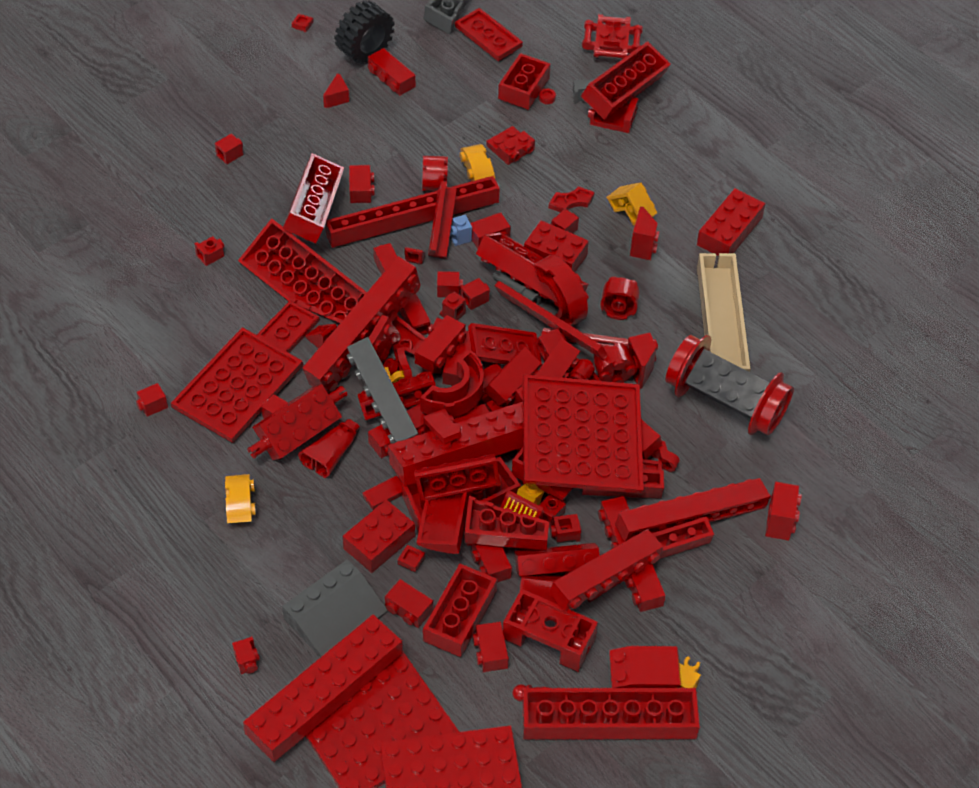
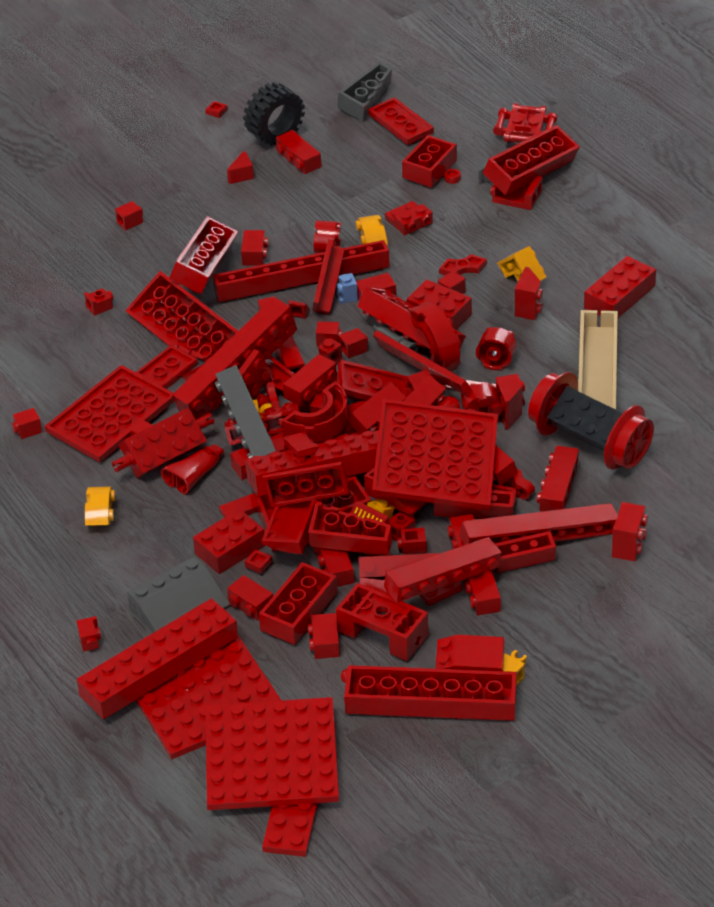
camera: 10 degrees right, 10 degrees down
(703, 450) = (558, 478): none -> red brick

